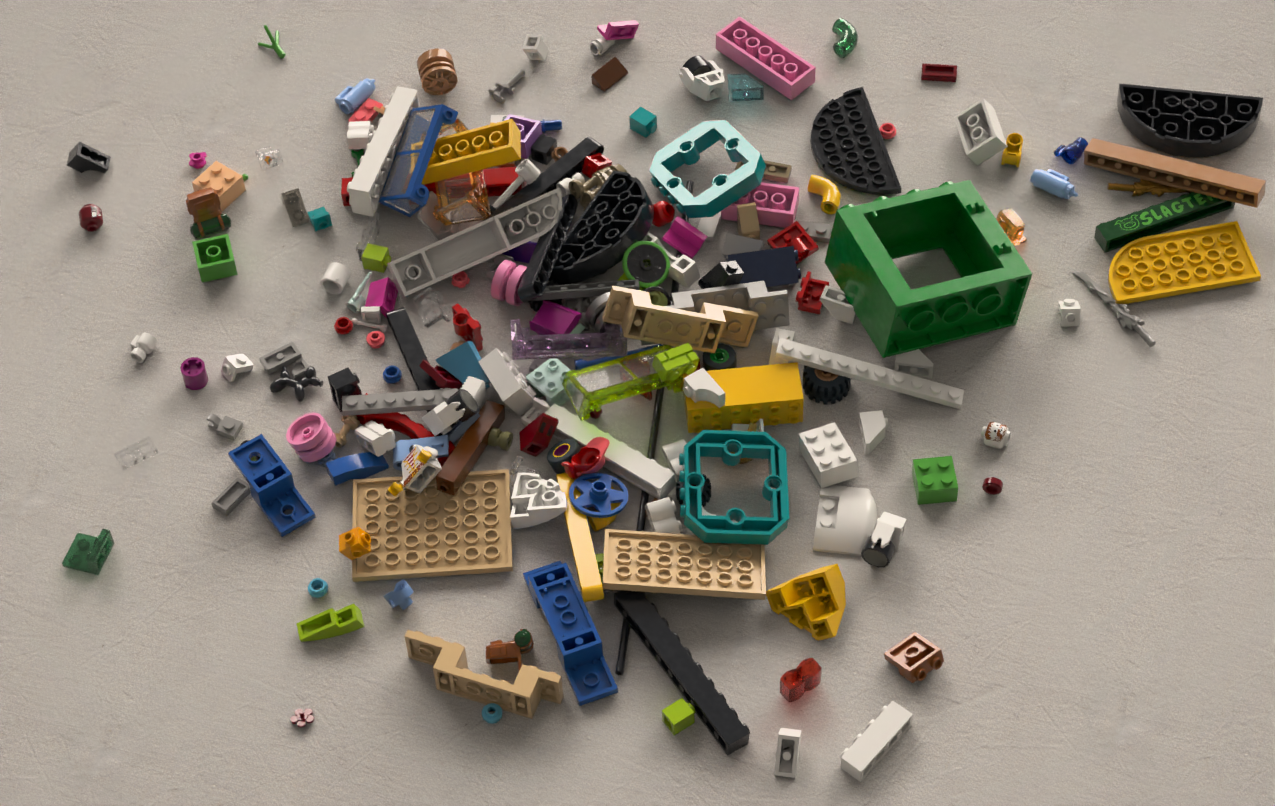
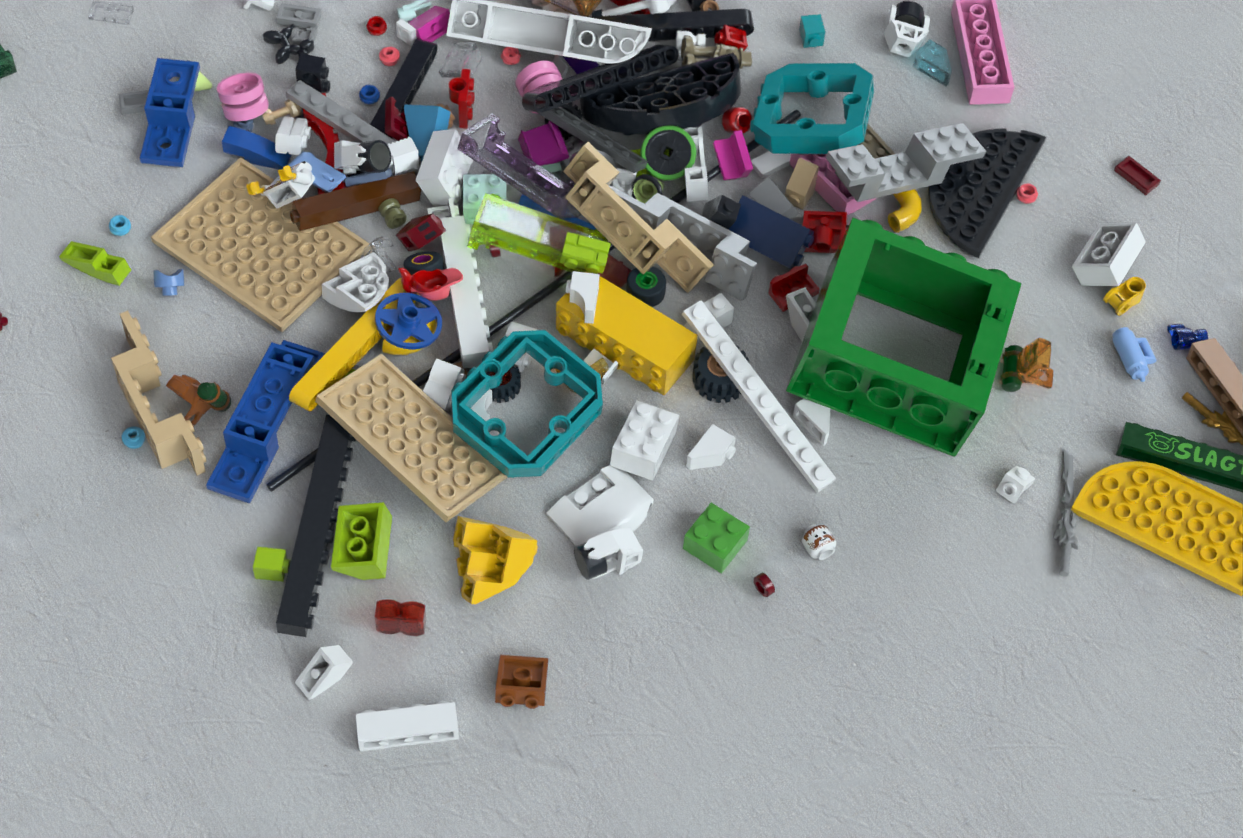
camera: 35 degrees right, 5 degrees up
(227, 427) = (198, 42): light grey plate -> none
(354, 543) = (176, 208): light orange brick -> none
(383, 327) = (390, 29): white hinge -> none
(723, 653) = (362, 540): none -> lime slope
(808, 163) = (919, 166): none -> light grey bracket
(848, 37) = (1082, 85): clear green cylinder -> none

